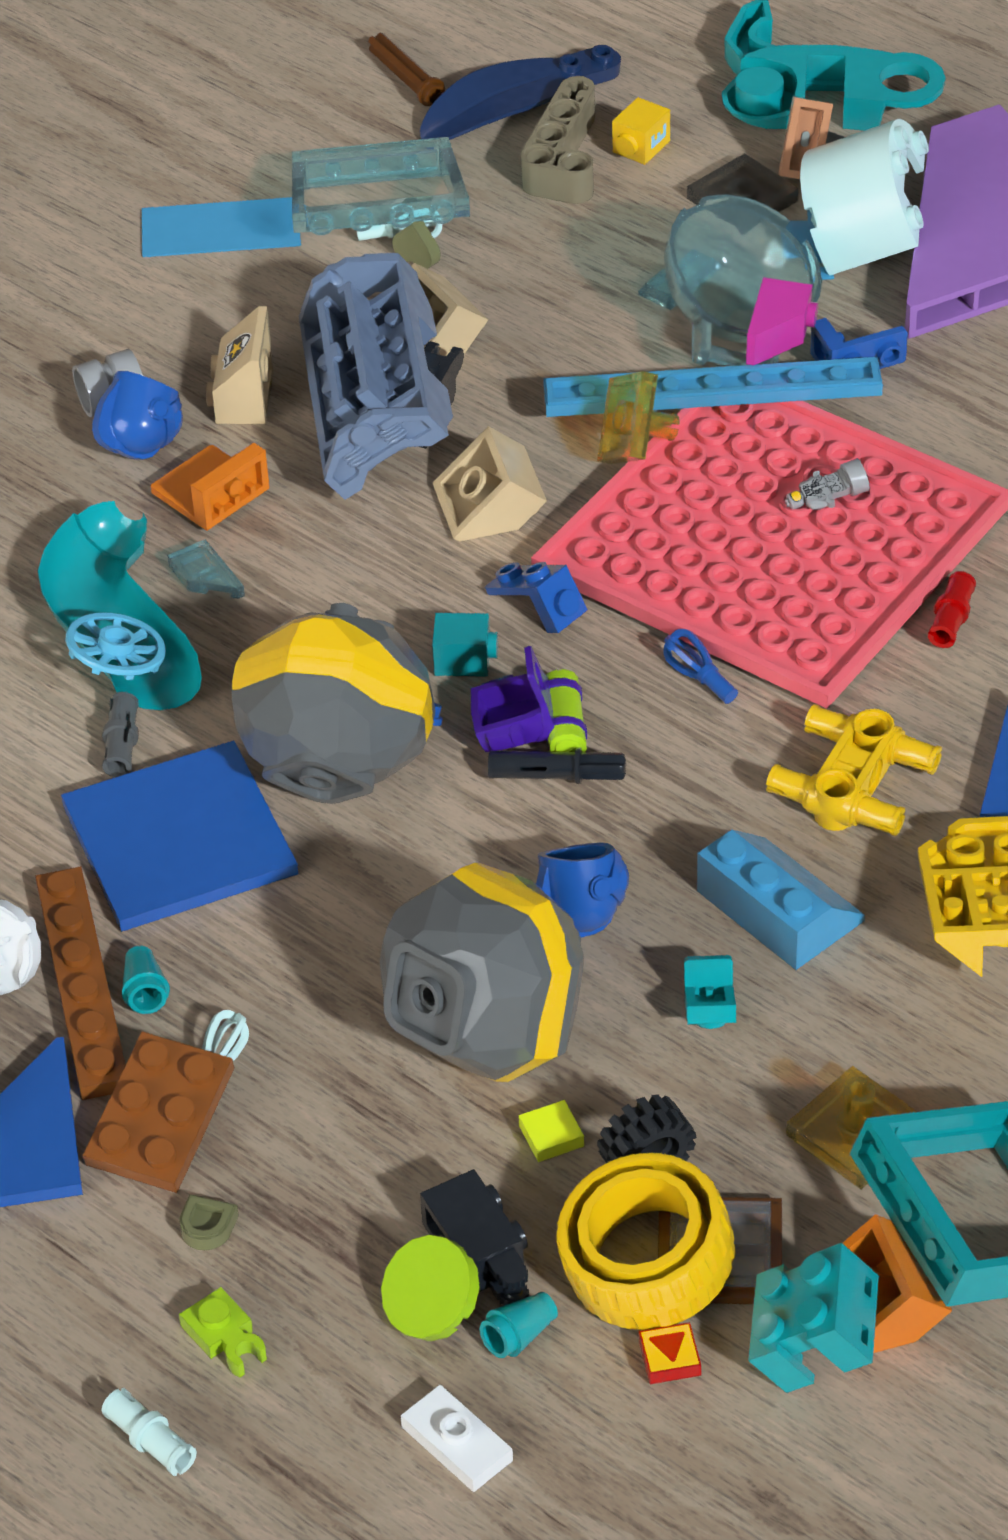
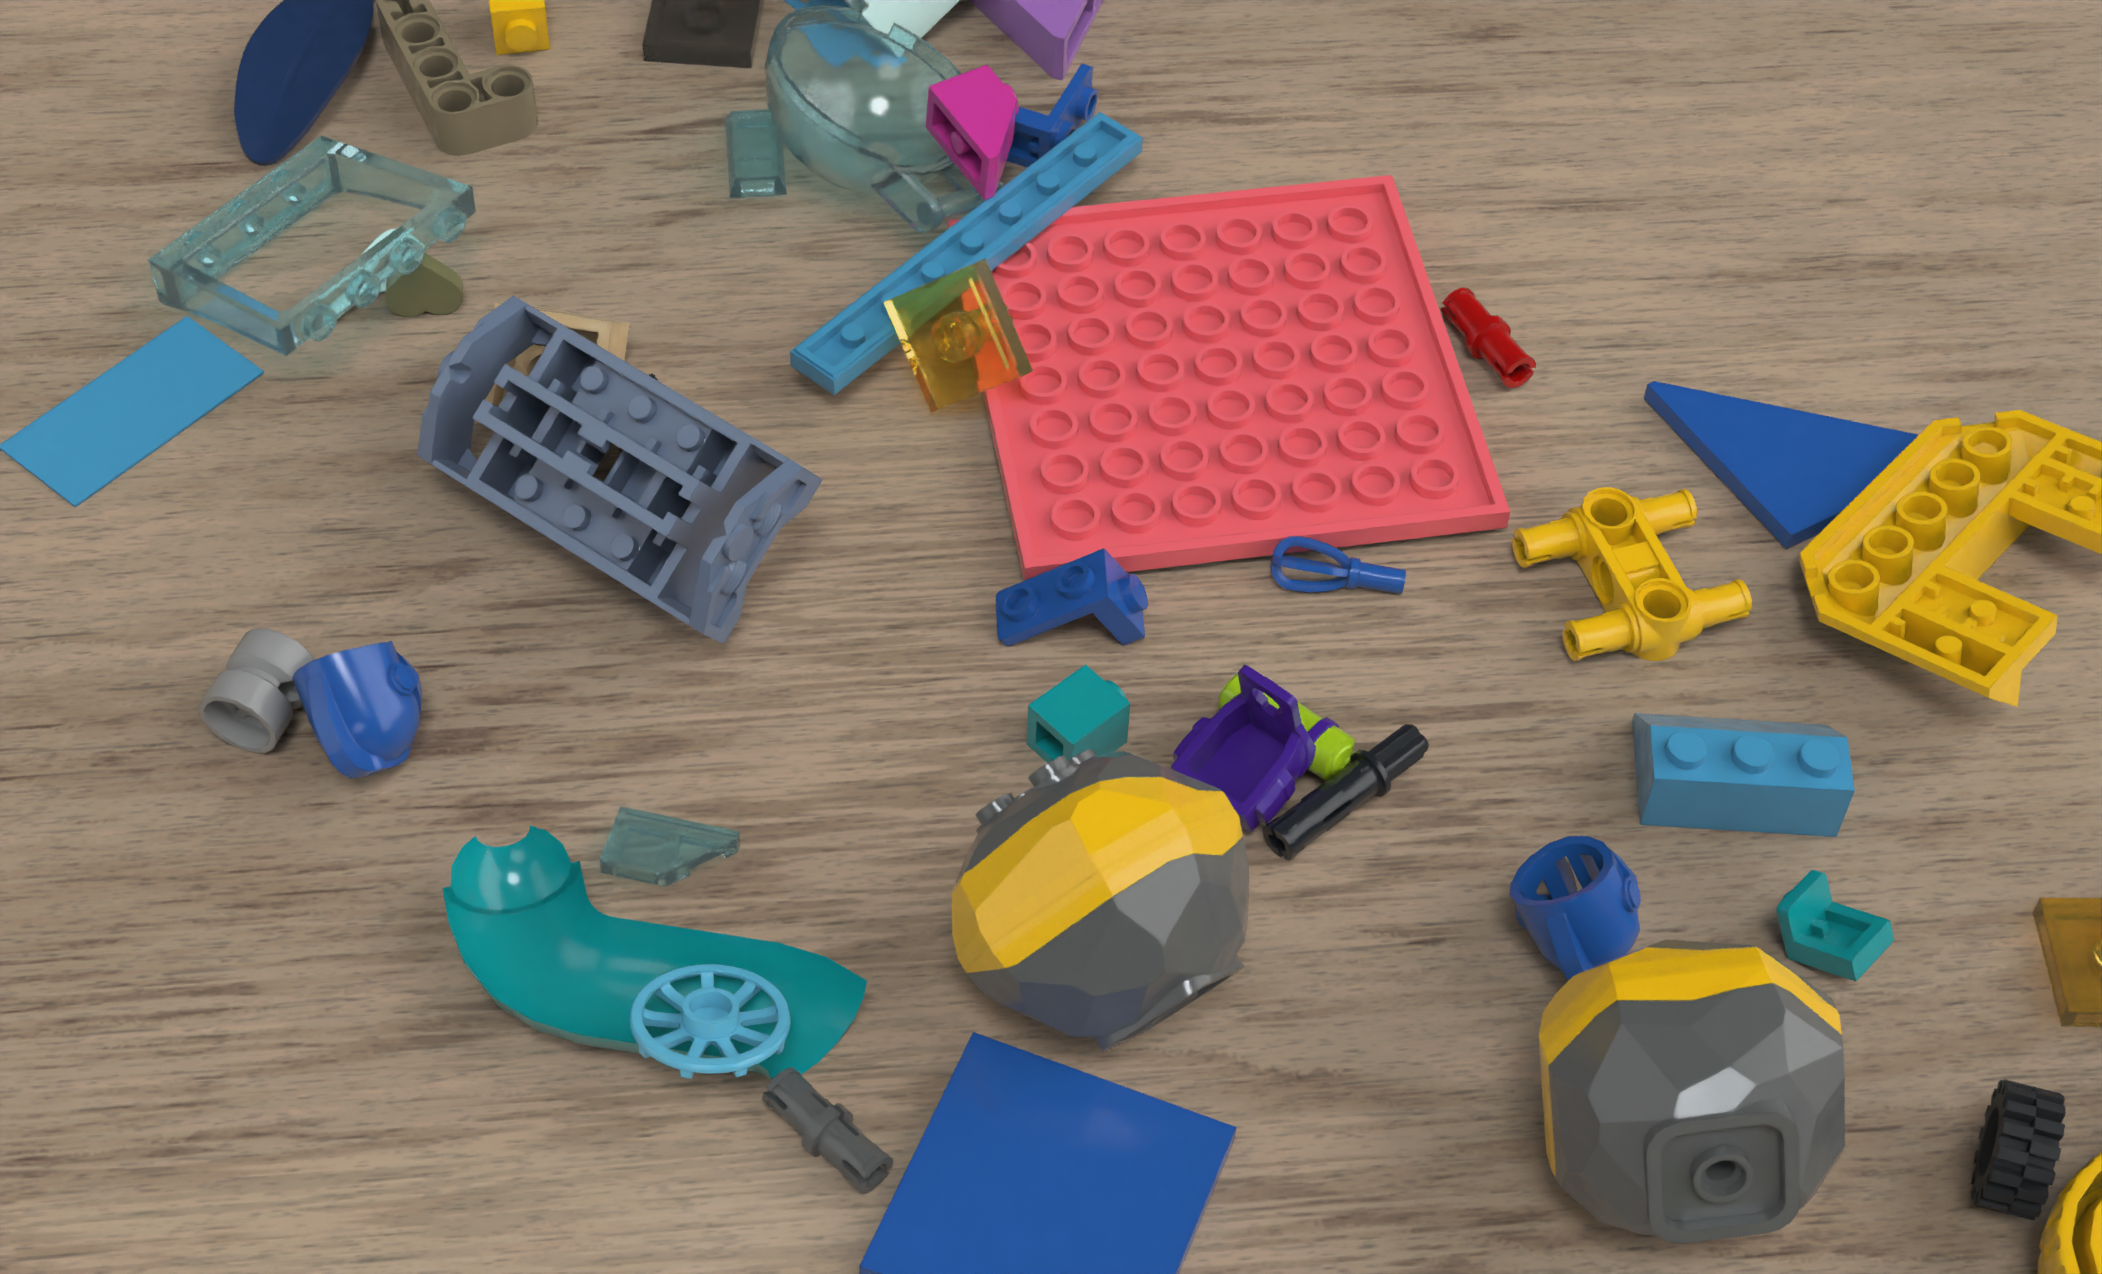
camera: 50 degrees left, 5 degrees up
(214, 484) = (541, 734): orange bracket -> none
(242, 372) = (421, 563): tan slope -> none
(425, 86) = (143, 88): reddish brown axle -> none
(489, 488) = (872, 522): tan slope -> none
(551, 1130) = (1878, 1219): neon yellow tile -> none
(821, 491) = (1230, 293): light grey piece -> none

